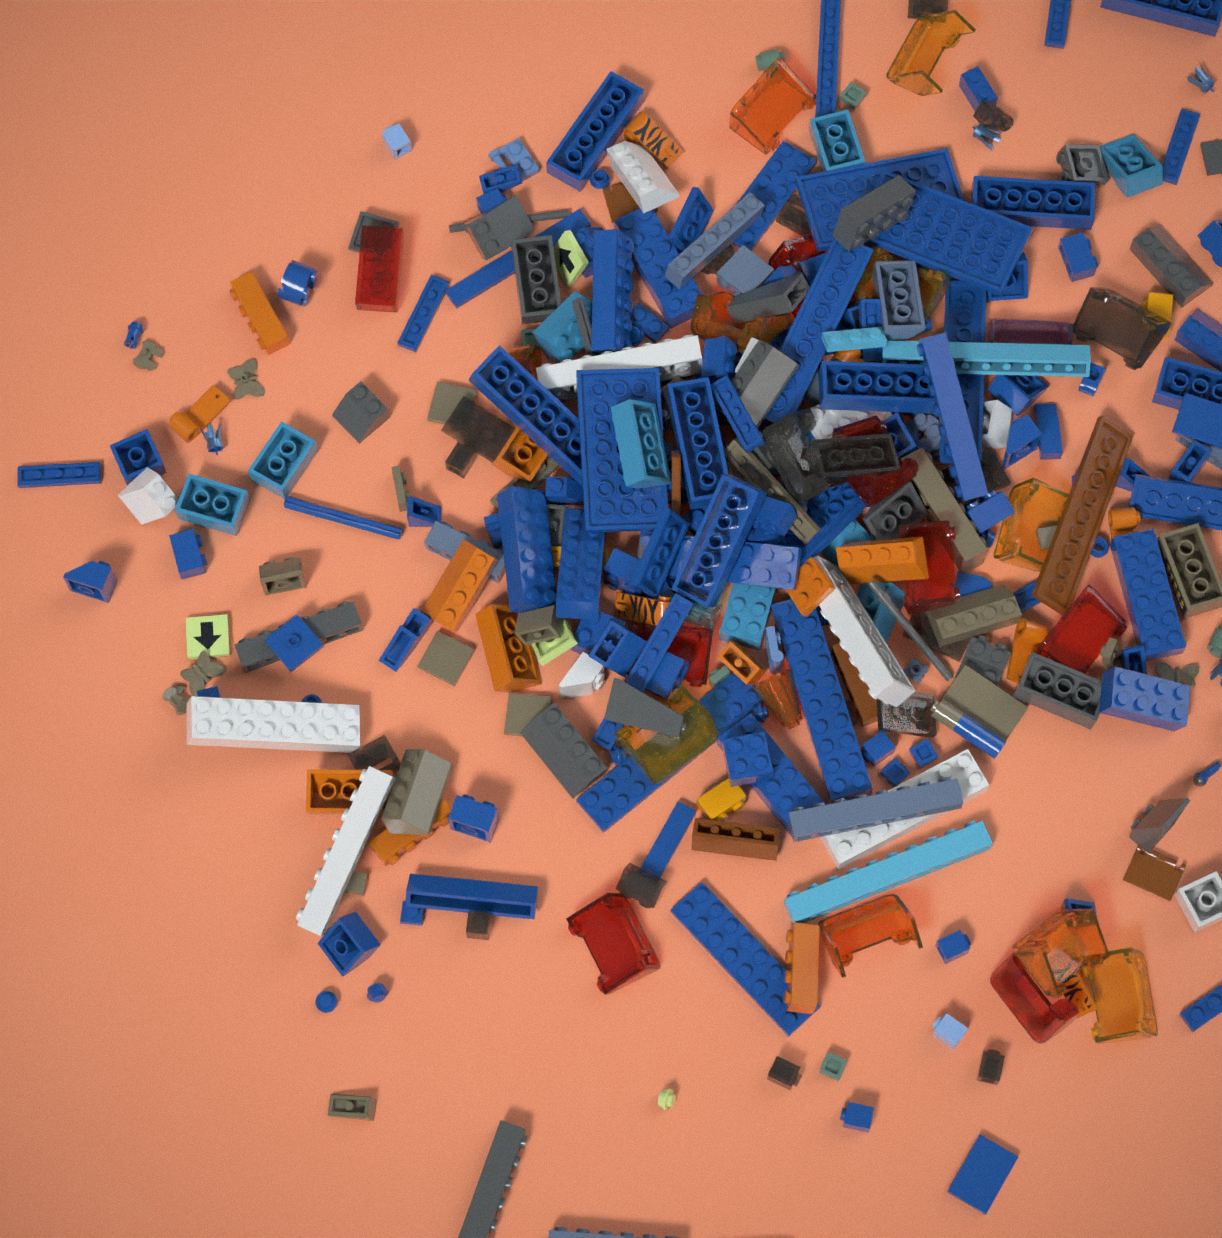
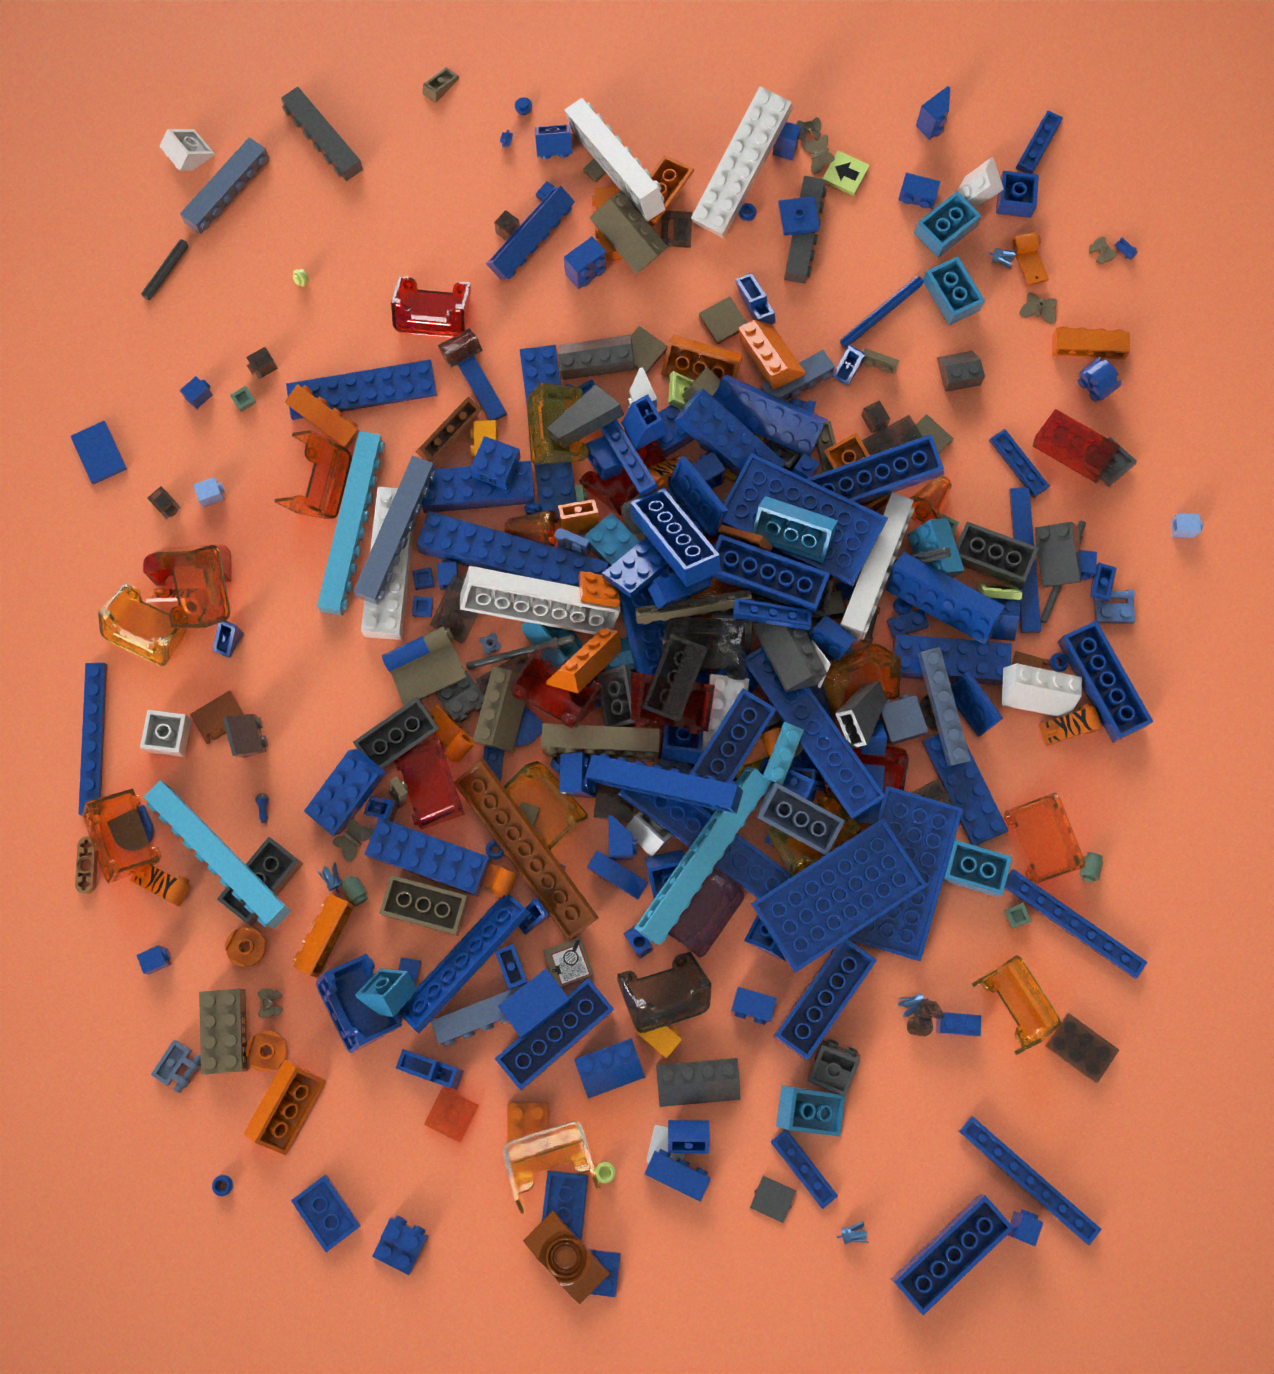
camera: 120 degrees right, 5 degrees up
(282, 576) = (860, 241): dark tan slope -> none
(874, 213) = (882, 834): dark grey brick -> none
(953, 946) = (266, 533): blue brick -> none
(1150, 426) = (568, 962): none -> tile

